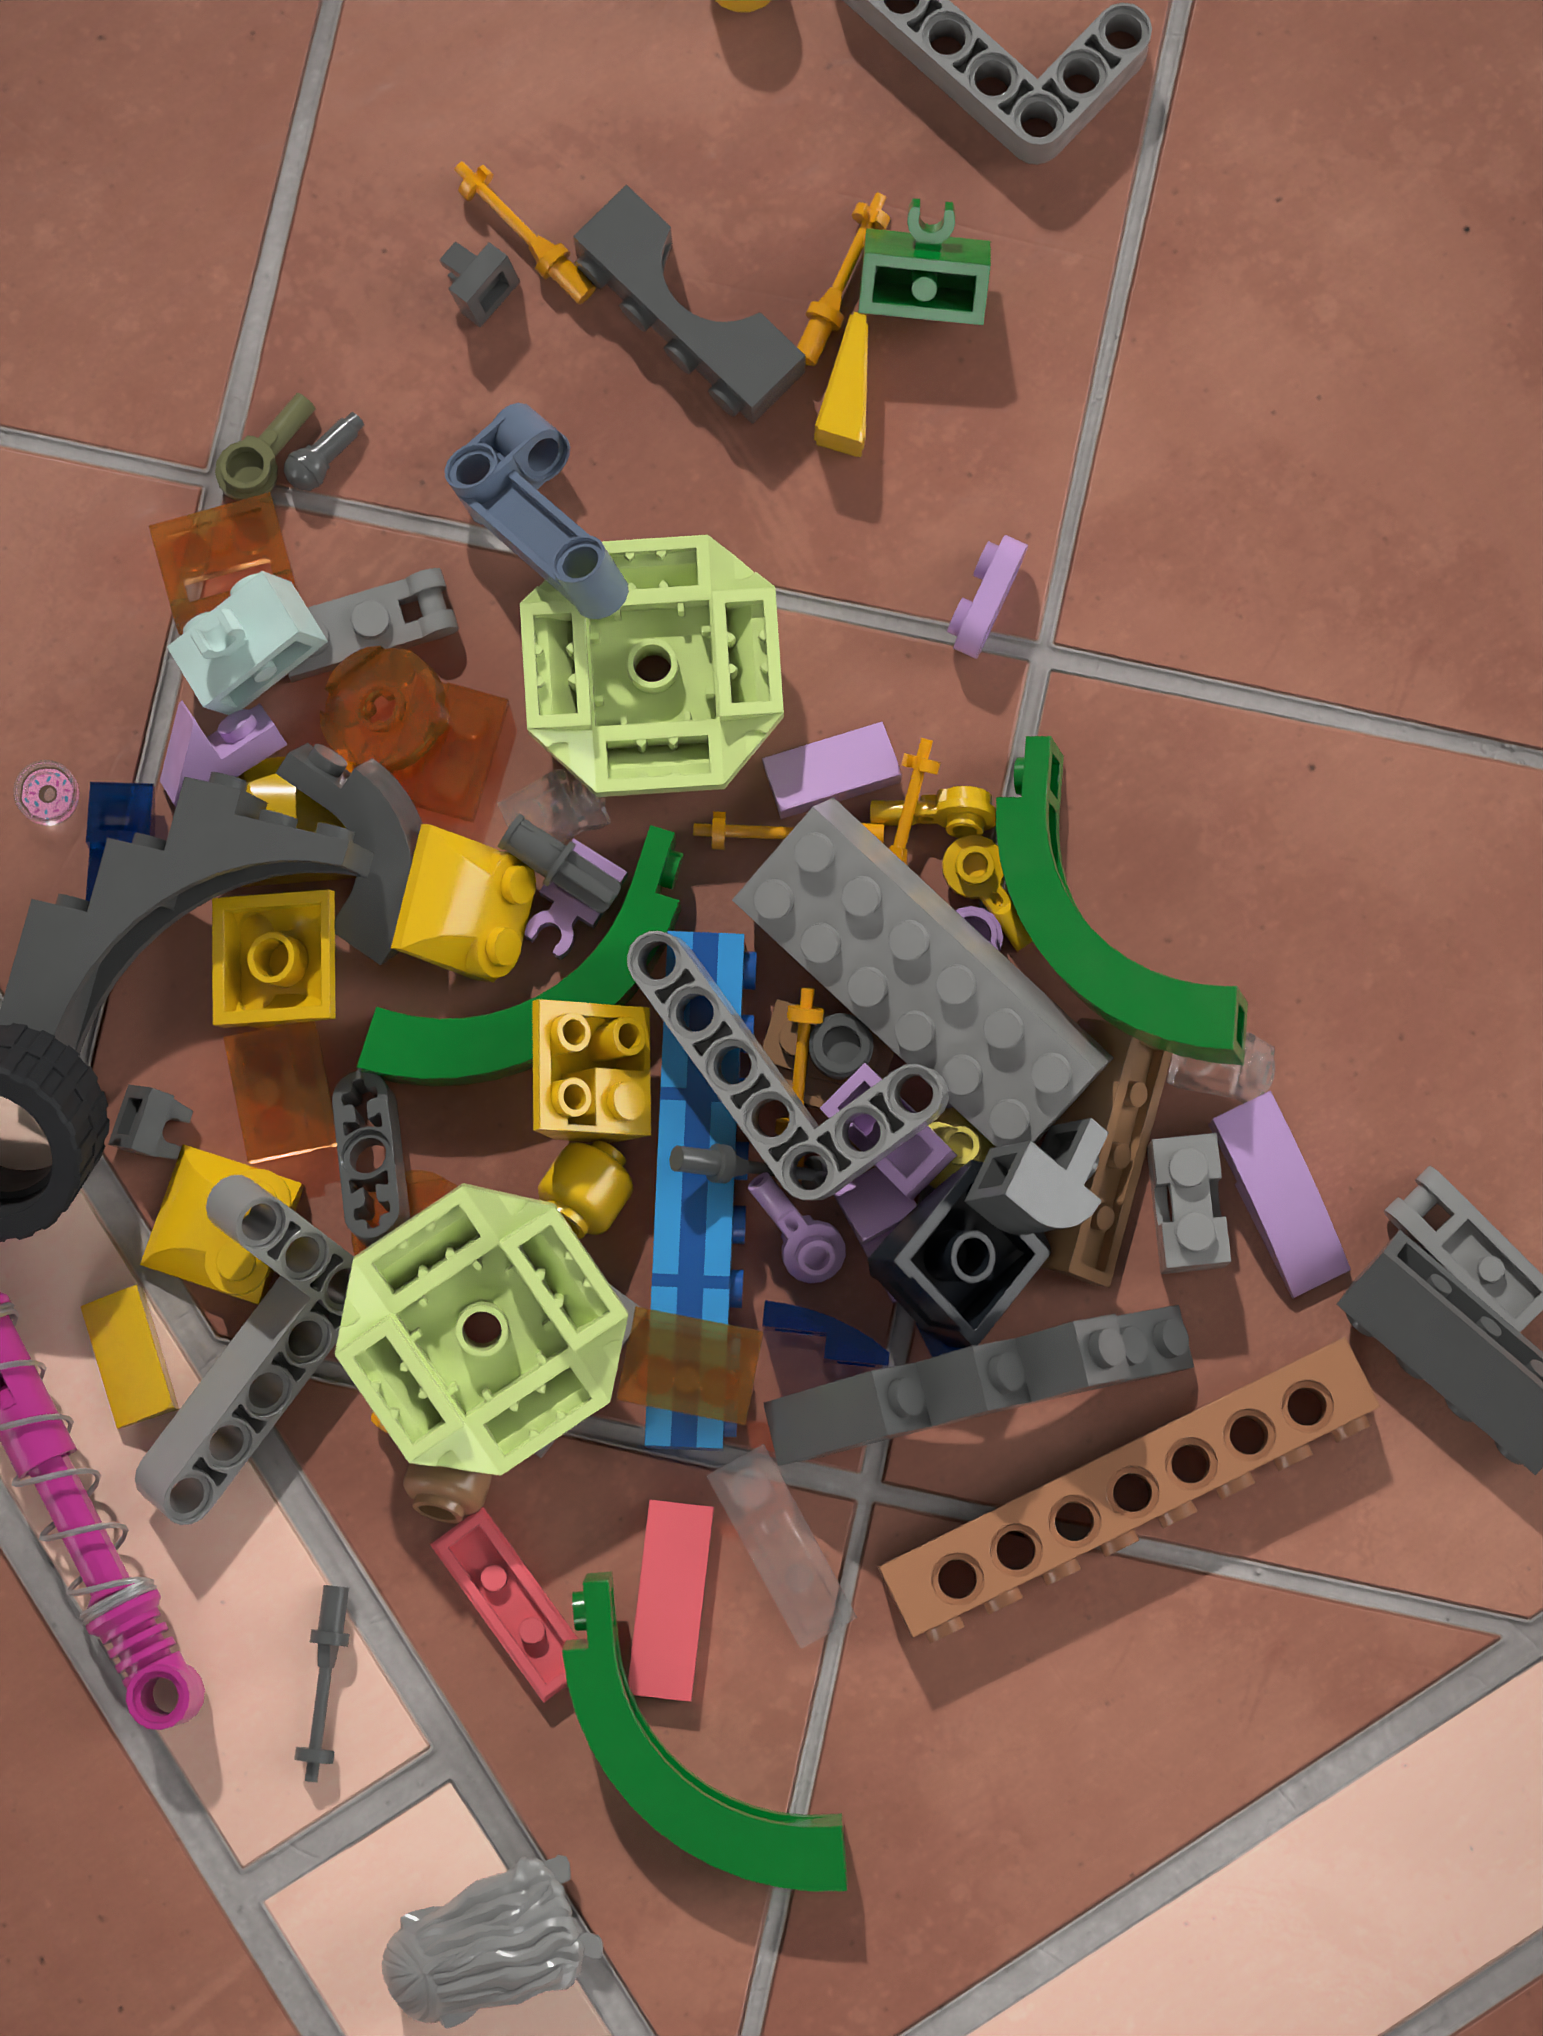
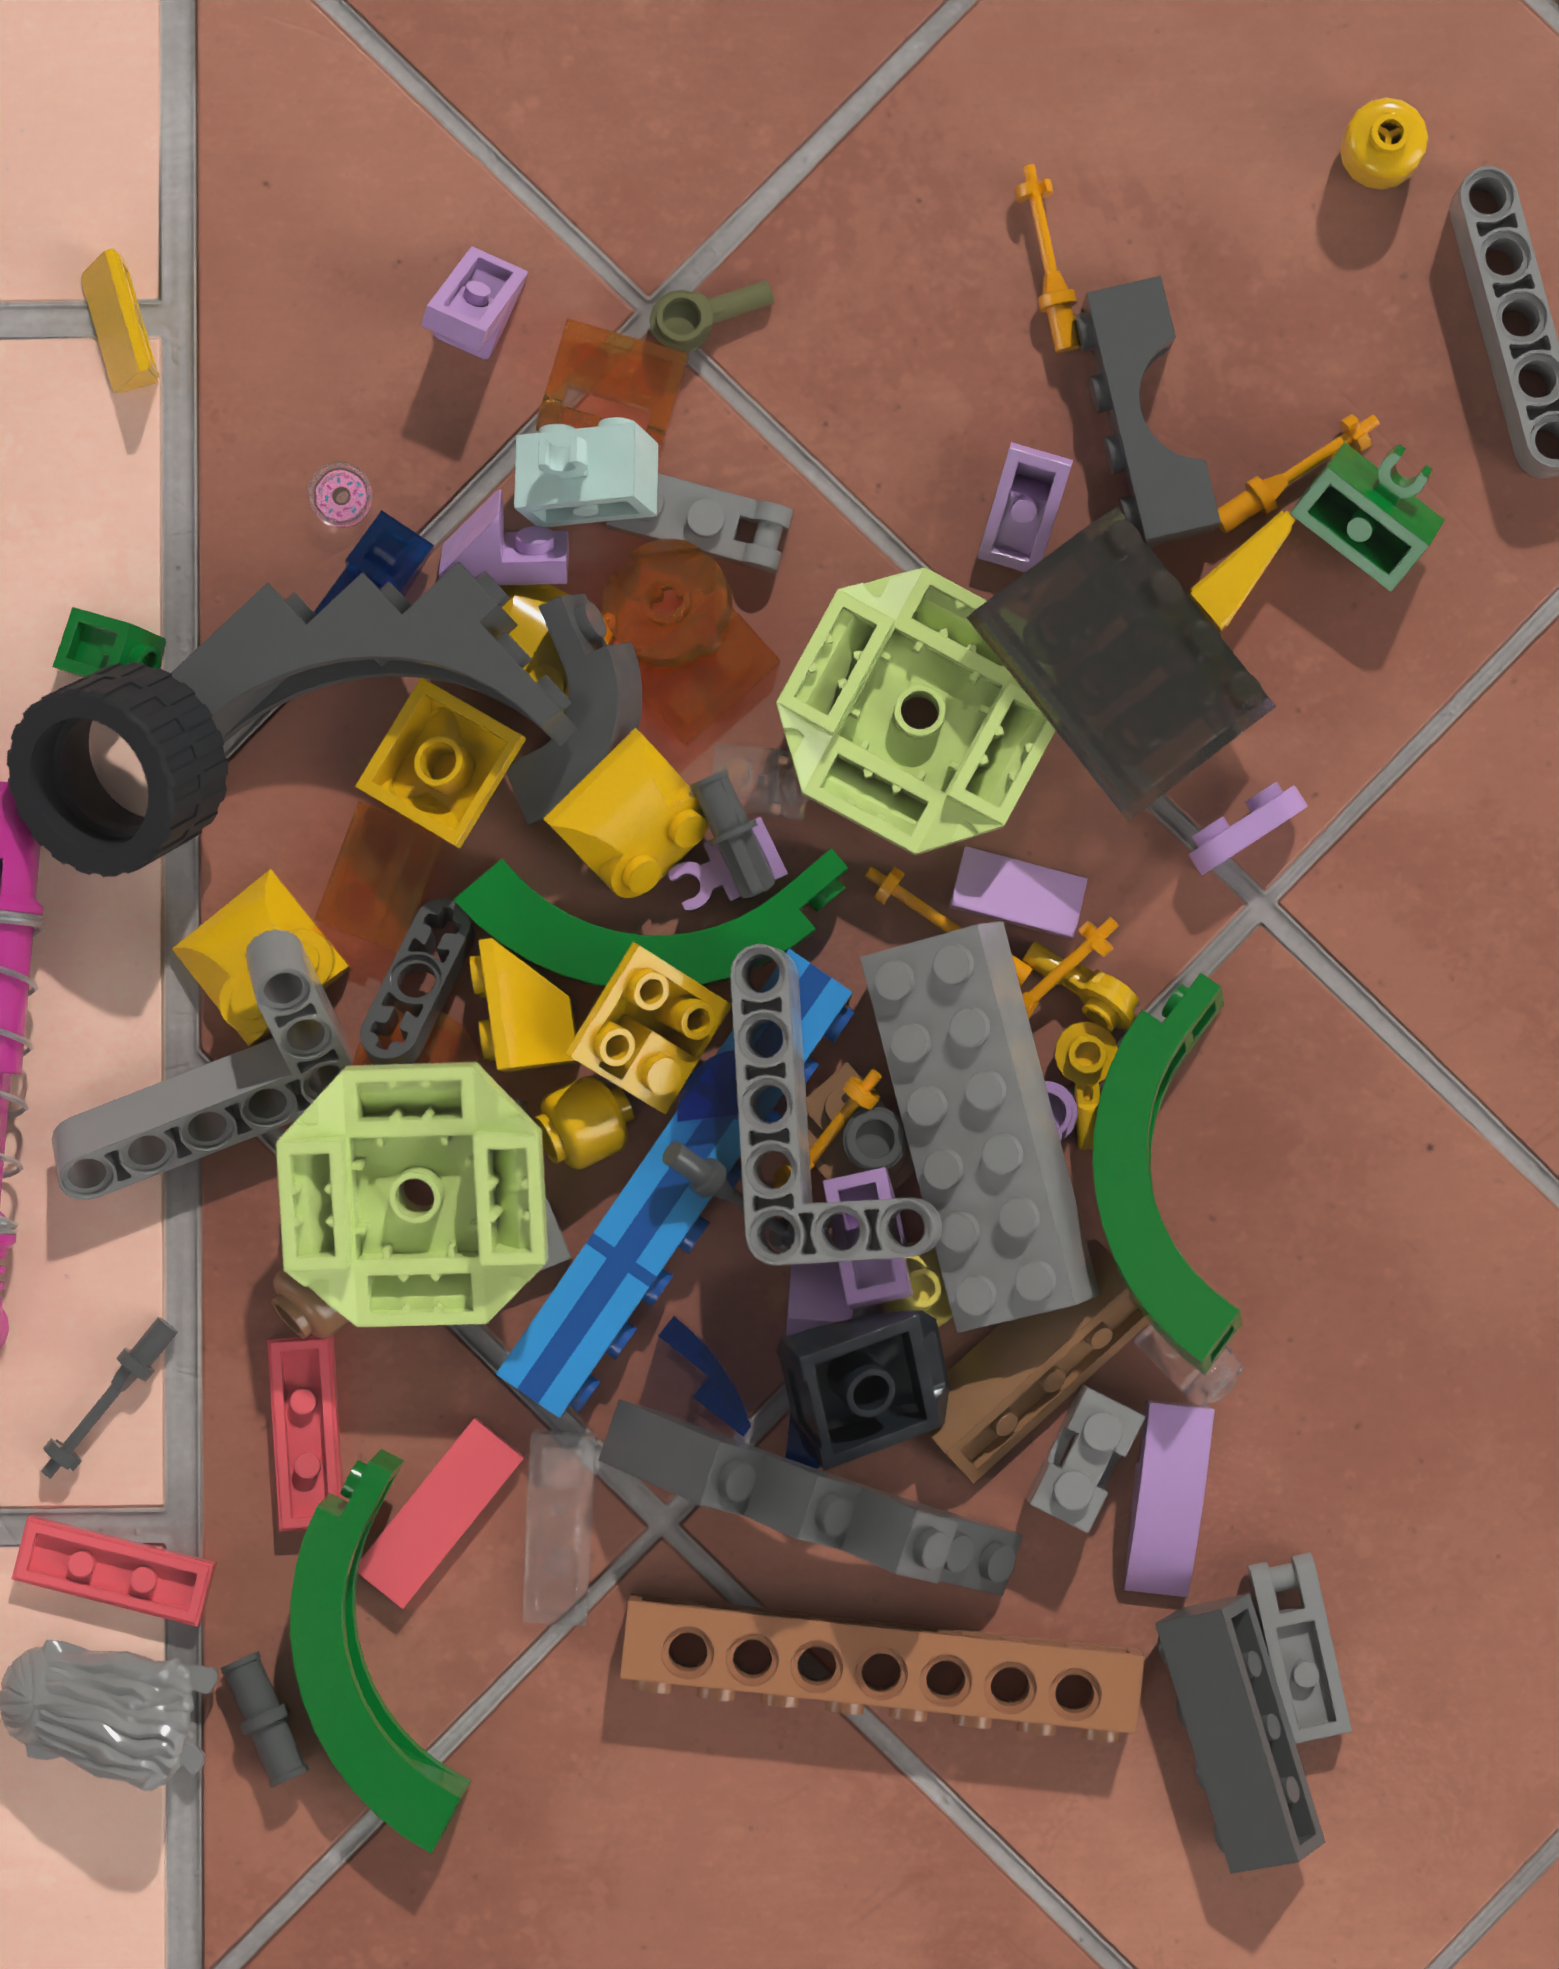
camera: 30 degrees right, 5 degrees up
(62, 562) = (475, 303): none -> lavender slope
(129, 1356) = (115, 1022): yellow slope -> none
(143, 1119) = (247, 830): dark grey tile -> none
(308, 466) = (735, 349): dark grey piece -> none
(421, 1828) = (113, 1570): none -> coral tile
(479, 280) = (982, 280): dark grey tile -> none
(482, 1121) = (528, 1014): none -> yellow slope
(498, 486) = (885, 468): sand blue piece -> none
(631, 1871) = (265, 1719): none -> dark grey pin
(634, 445) = (1024, 507): none -> lavender slope
(677, 1088) = (710, 1090): none -> clear blue tile
(690, 1366) = (574, 1334): clear orange plate -> none
(797, 518) = (1121, 662): none -> clear smoke slope
(810, 1247) = (742, 1291): lavender plate -> none
(1040, 1188) = (969, 1371): brick -> none

